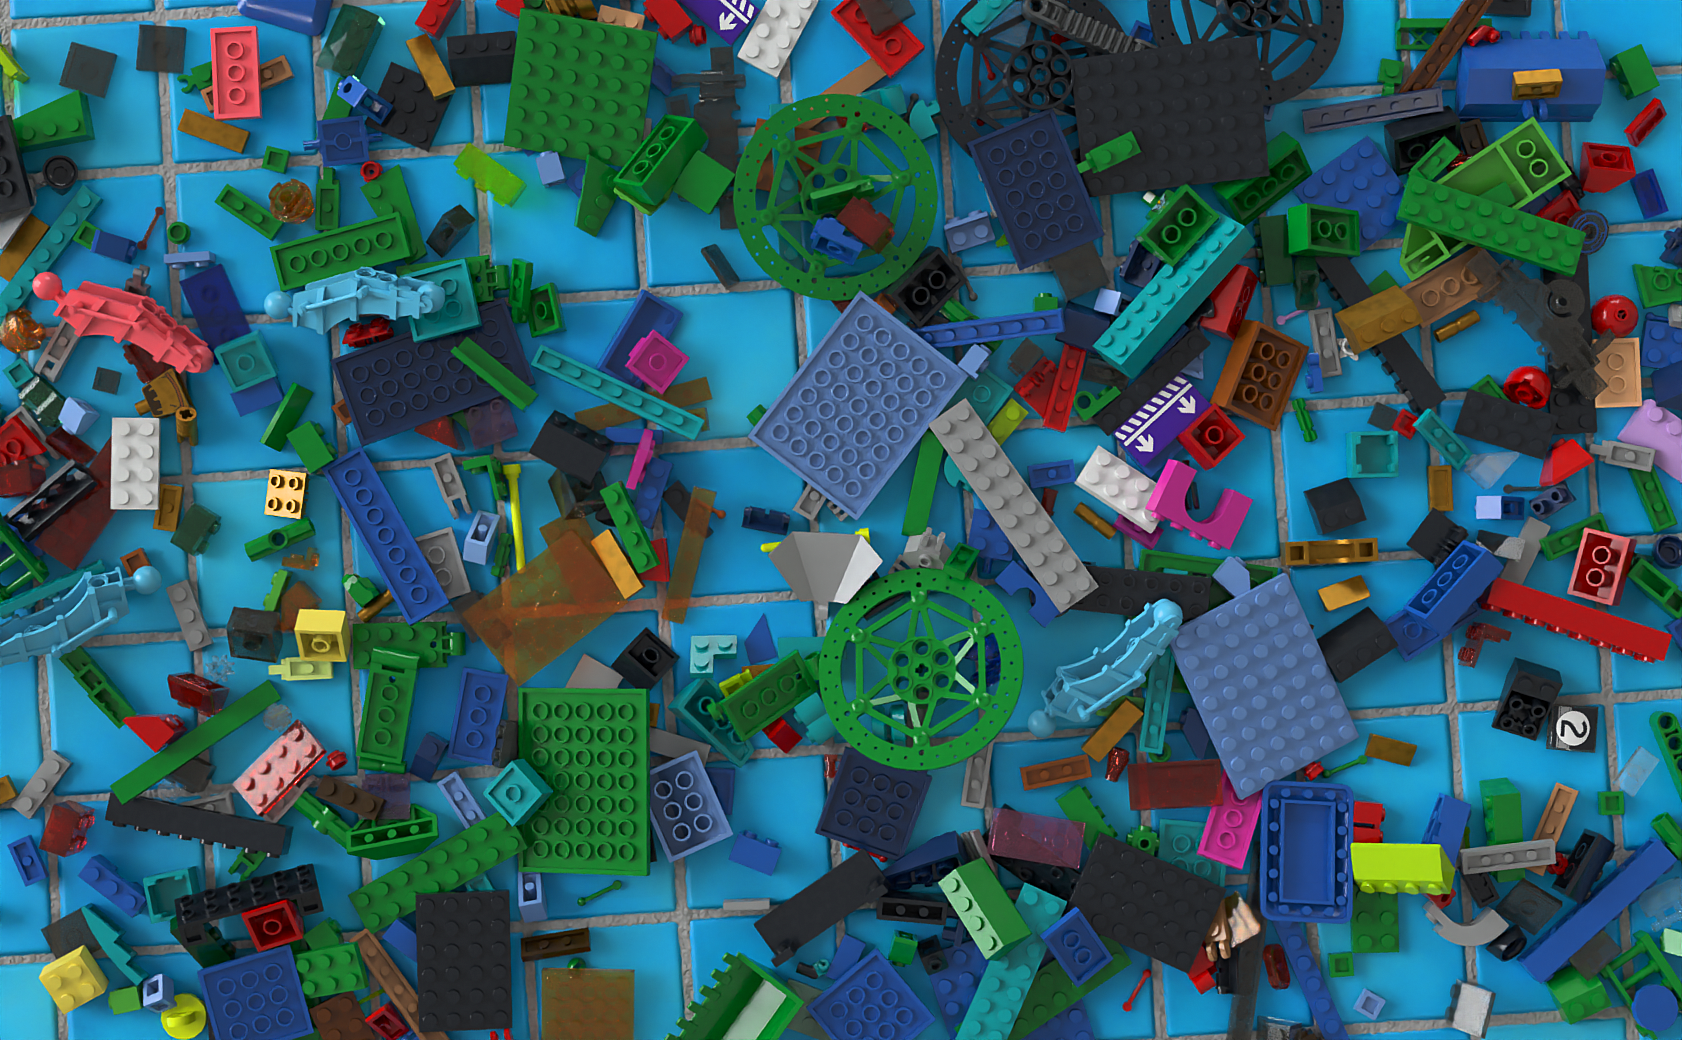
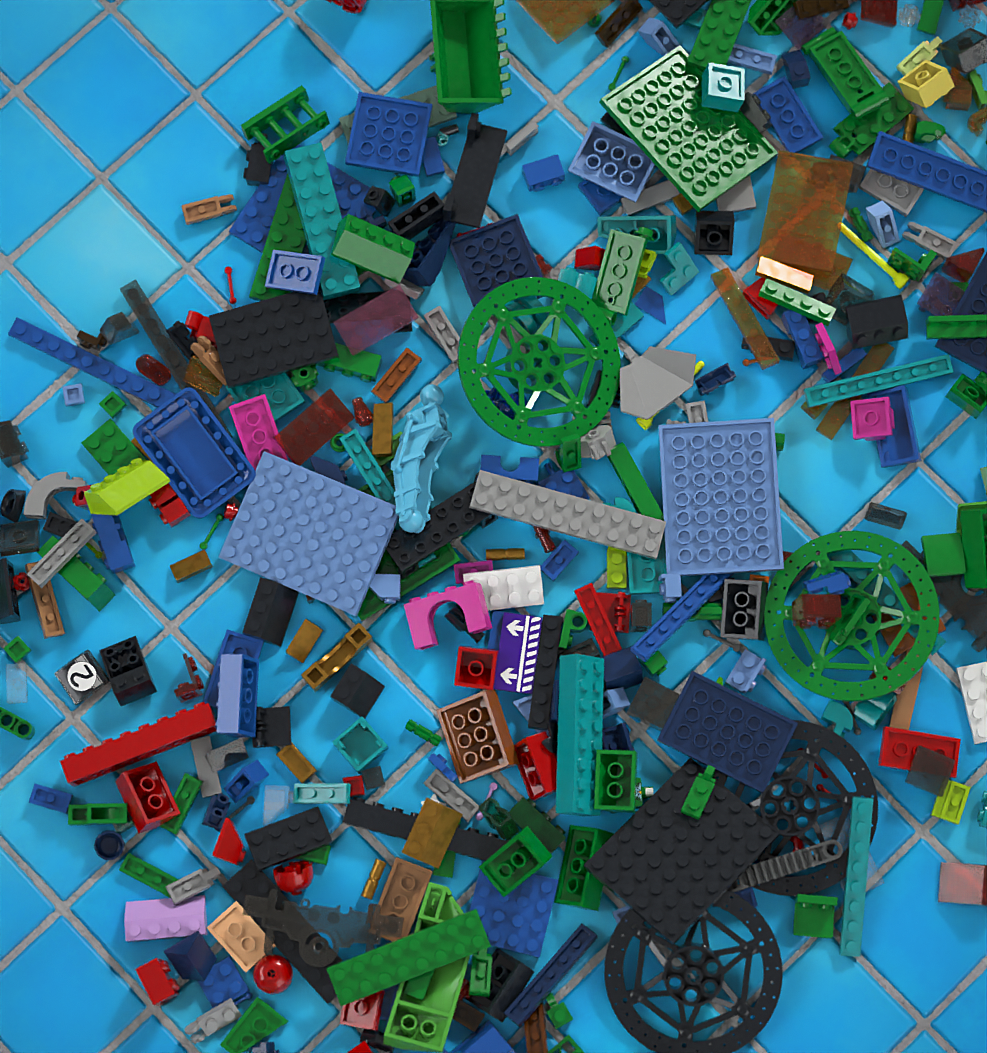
camera: 135 degrees right, 10 degrees down
(1598, 229) = (329, 1020): clear smoke tile -> none

